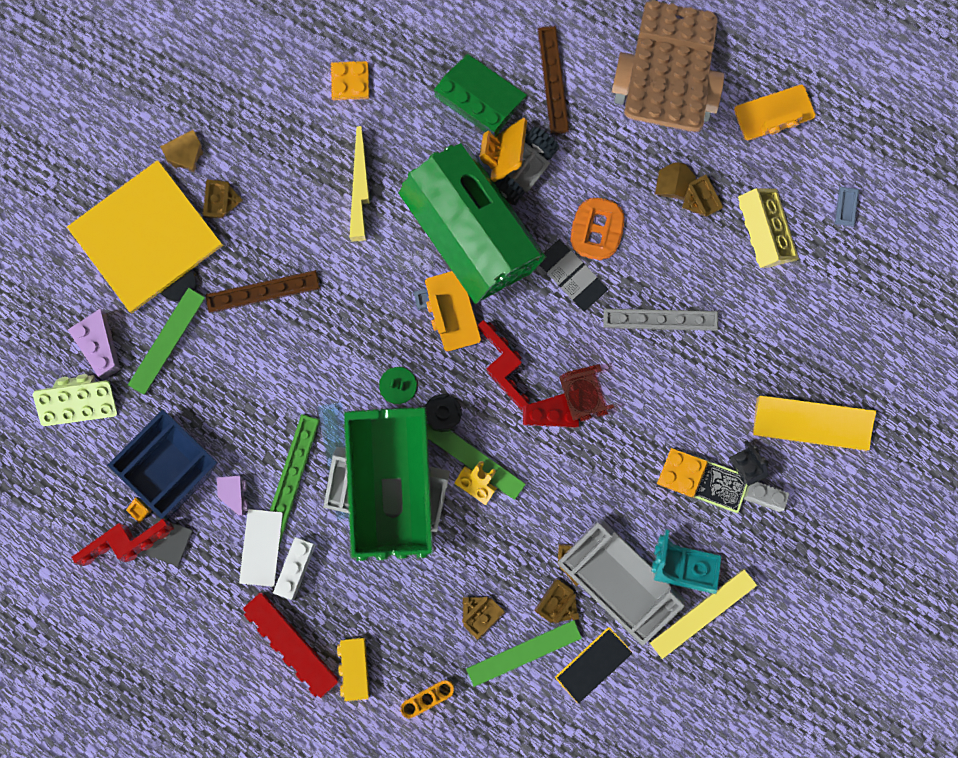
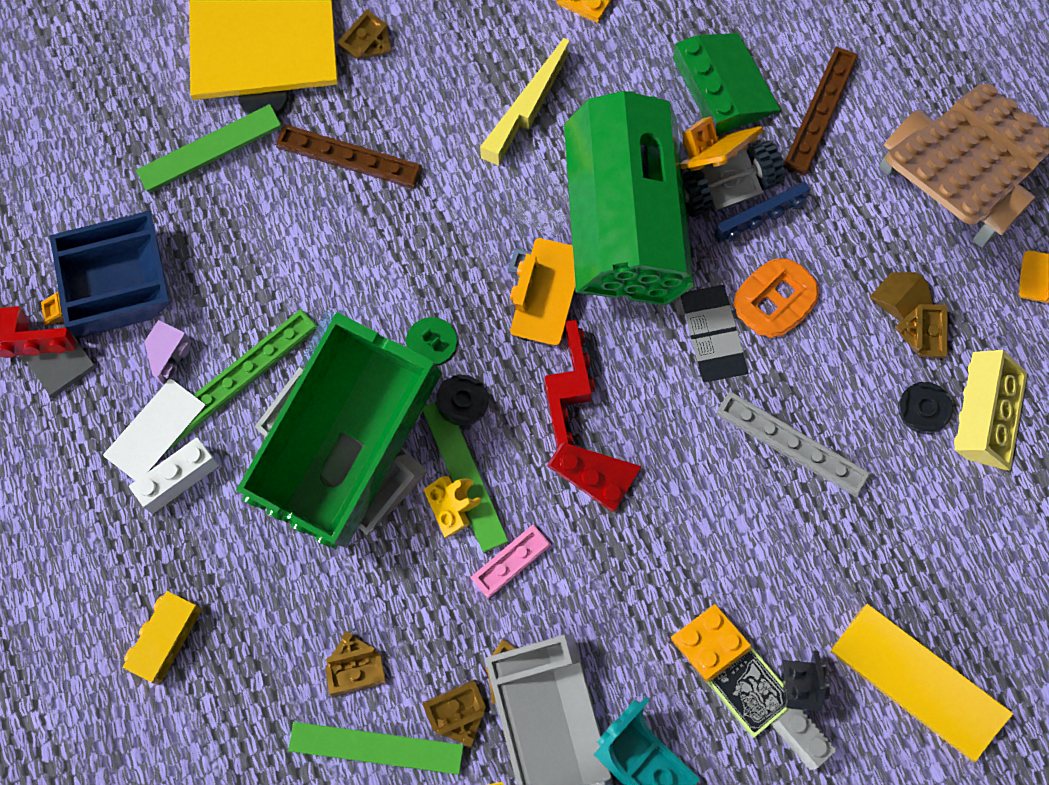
camera: 30 degrees right, 10 degrees down
(75, 400) = (69, 155): yellowish green bracket -> none
(96, 343) = (133, 109): lavender wedge -> none
(291, 645) = (109, 564): red brick -> none
(417, 700) = (209, 729): light orange beam -> none
(534, 495) = (510, 561): none -> bright pink tile
(561, 170) = (754, 217): none -> dark blue plate
(584, 393) = (645, 473): clear red panel -> none
(722, 249) = (917, 408): none -> black tile

